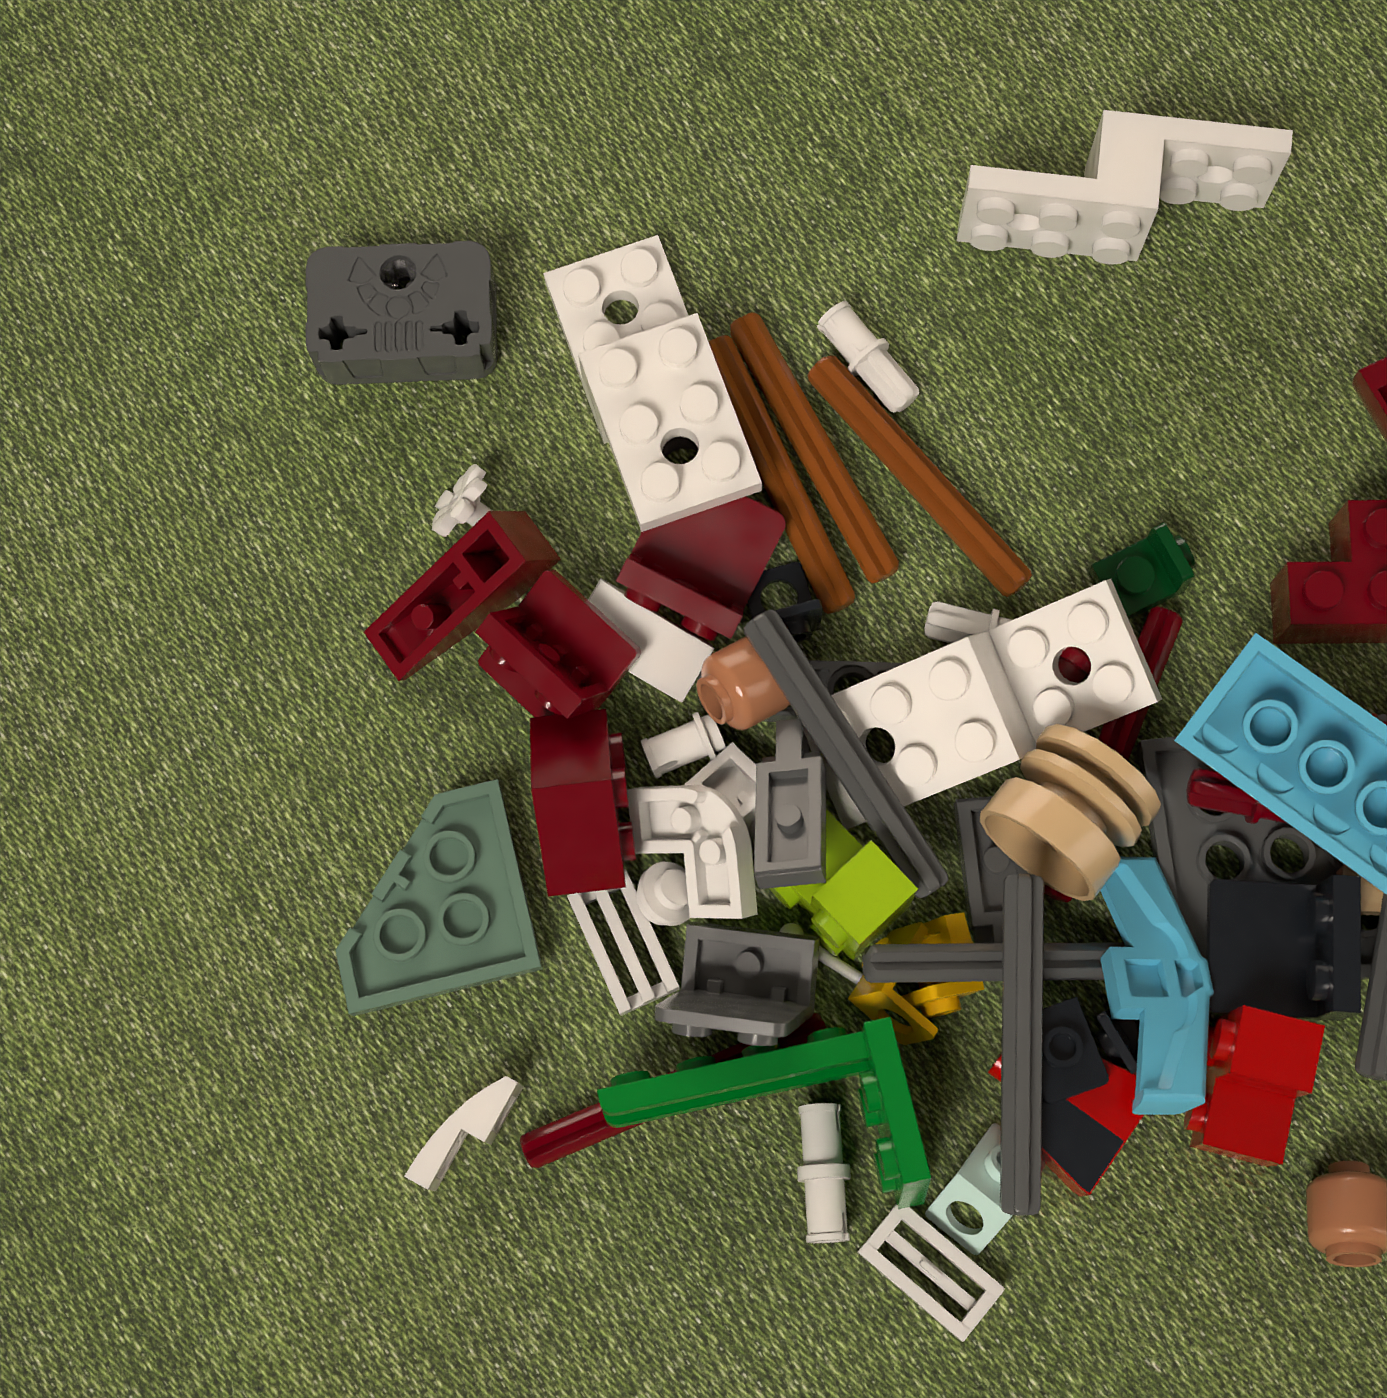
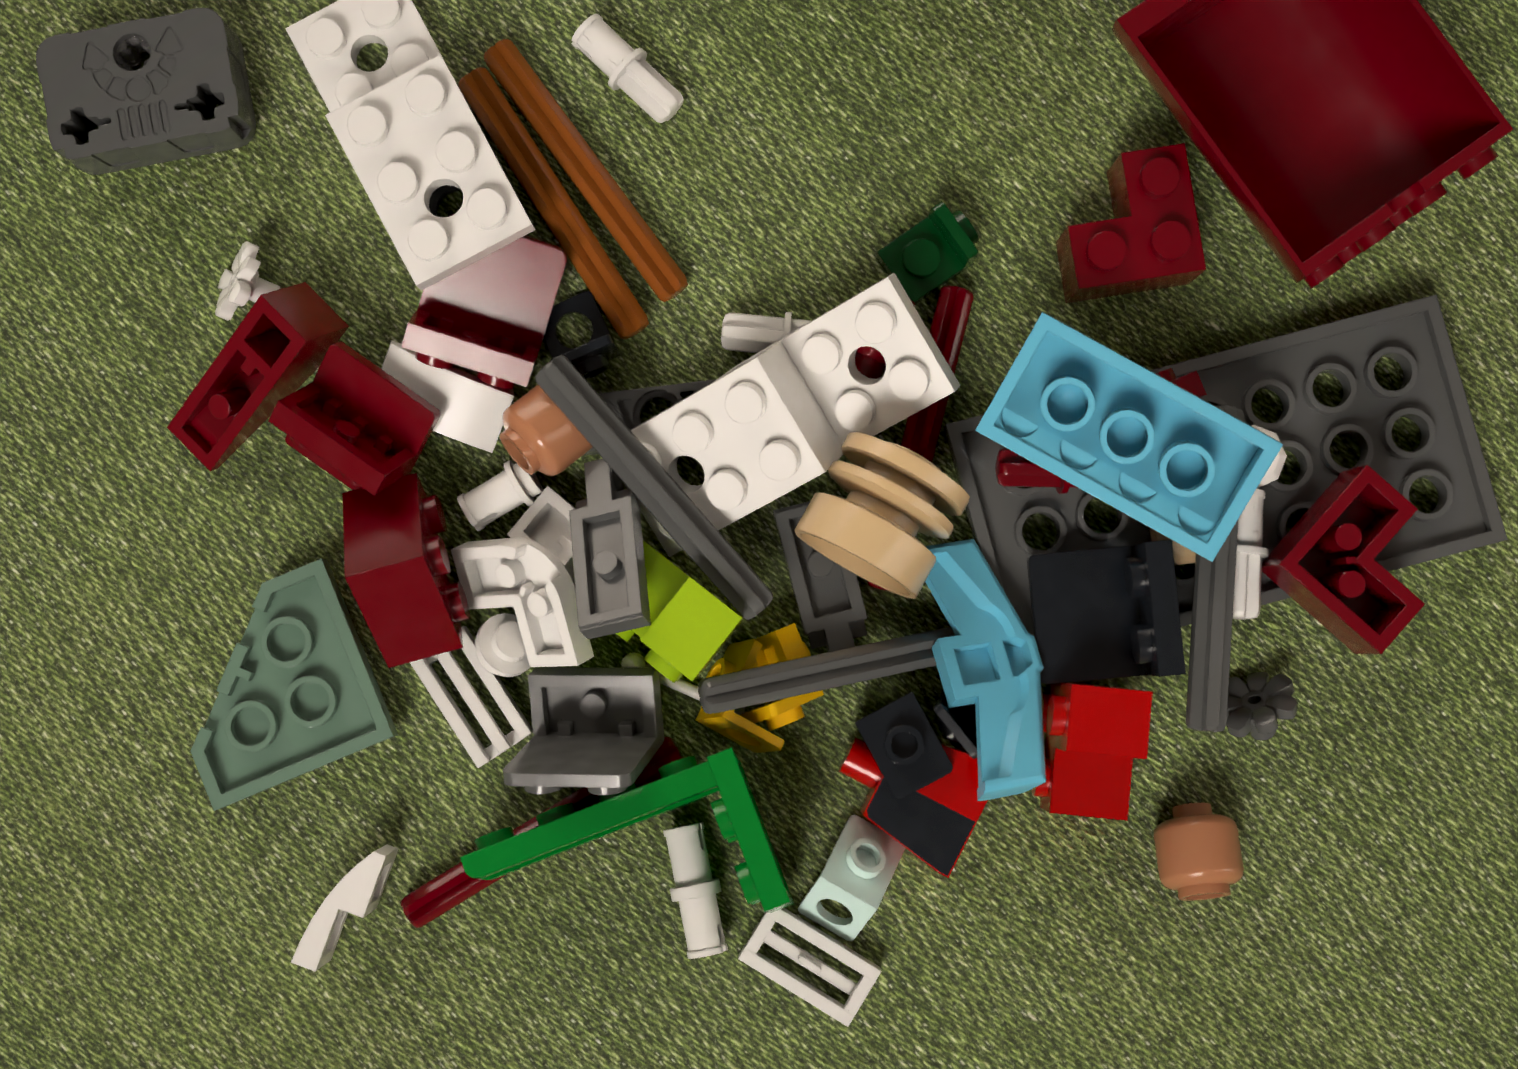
camera: 10 degrees left, 10 degrees up
(919, 476) = (694, 184): dark orange axle -> none
(1022, 1044) = (864, 747): dark grey axle -> none

